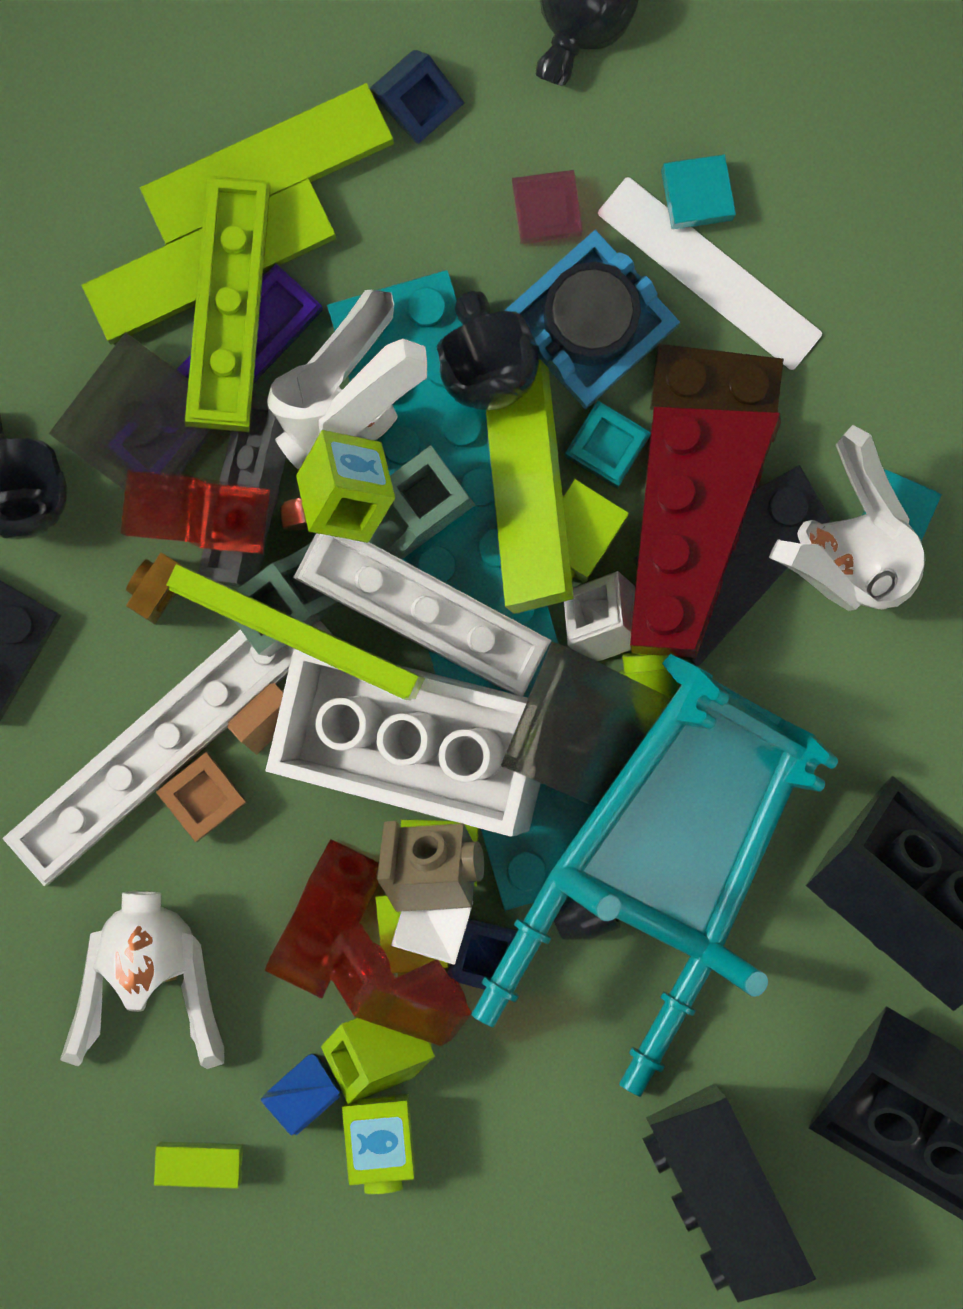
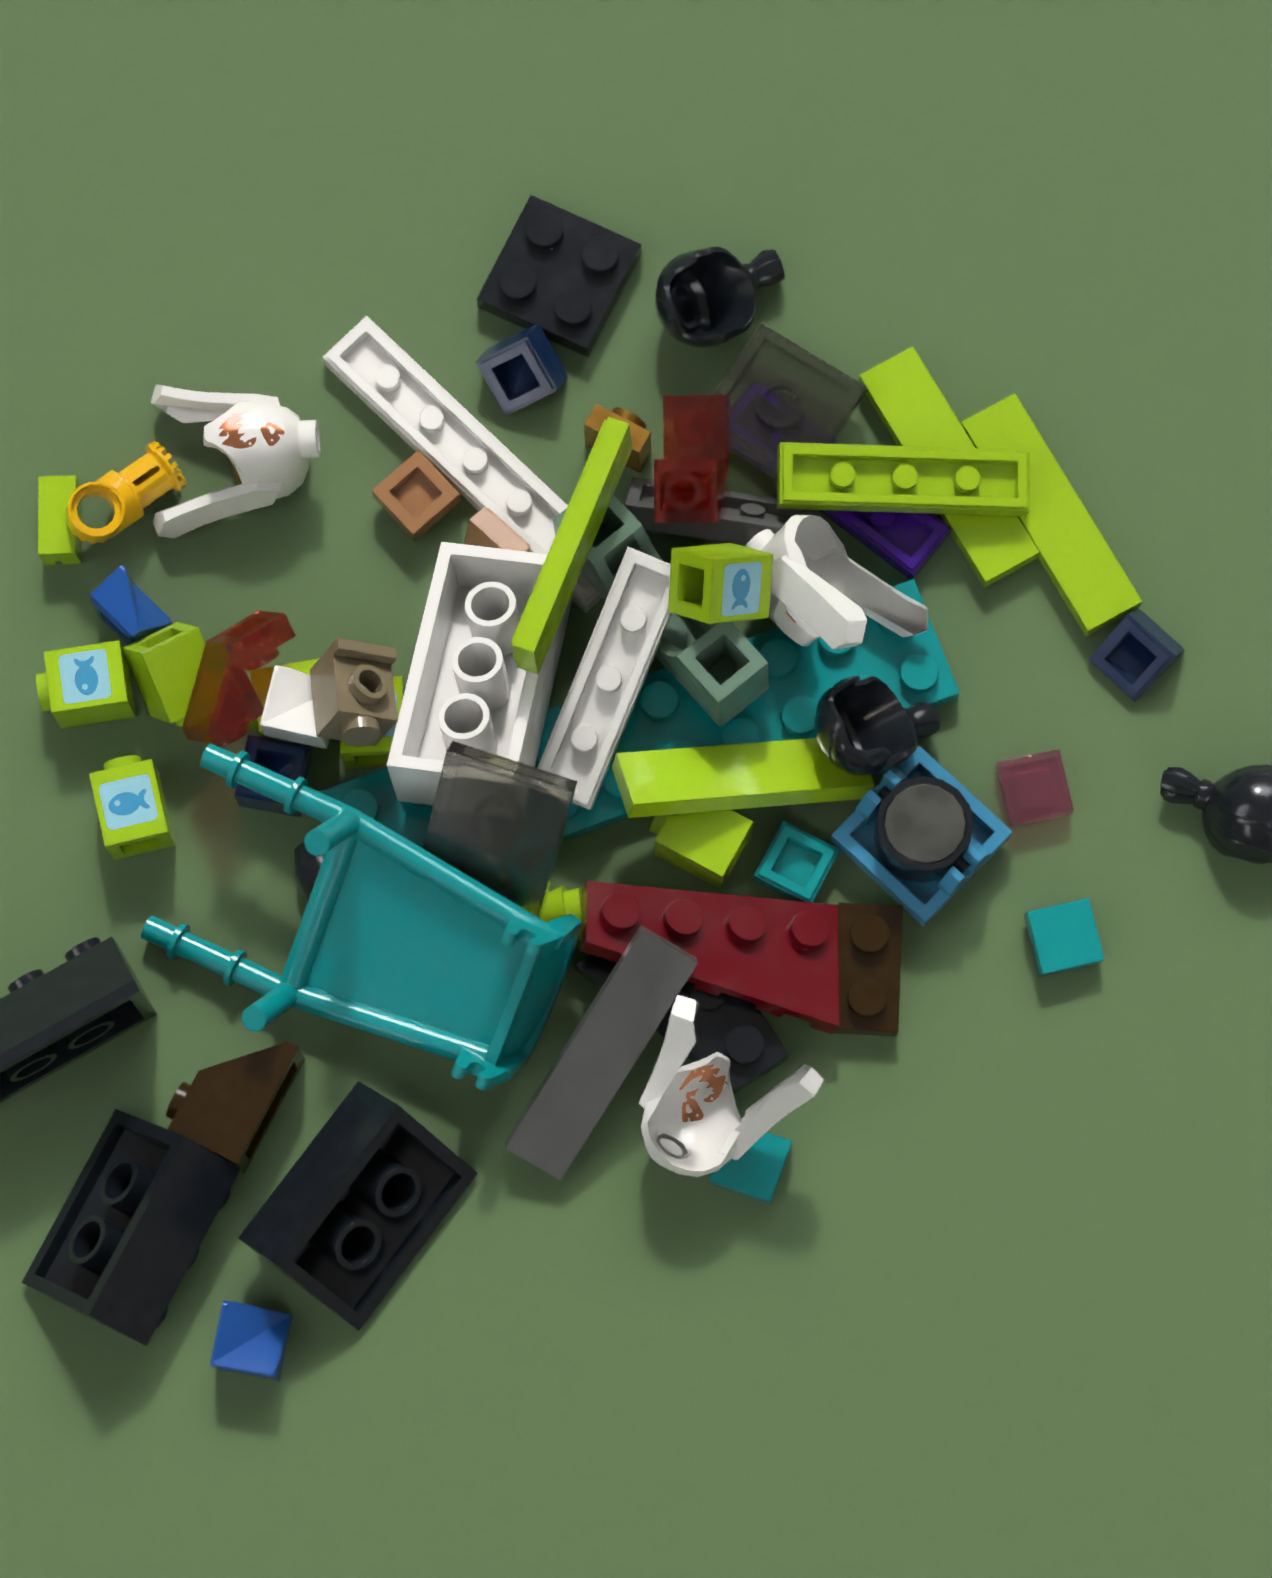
camera: 90 degrees right, 10 degrees down
(73, 682) = (522, 369): none -> dark blue slope
(180, 1100) = (126, 493): none -> yellow connector
(329, 905) = (313, 616): clear red slope -> none
(509, 1101) = (131, 807): none -> lime brick
(601, 617) = (619, 860): white slope -> none
(710, 274) = (980, 960): white sticker -> none
(796, 643) = (600, 1052): none -> dark grey tile
(819, 1012) = (235, 1102): none -> dark brown slope

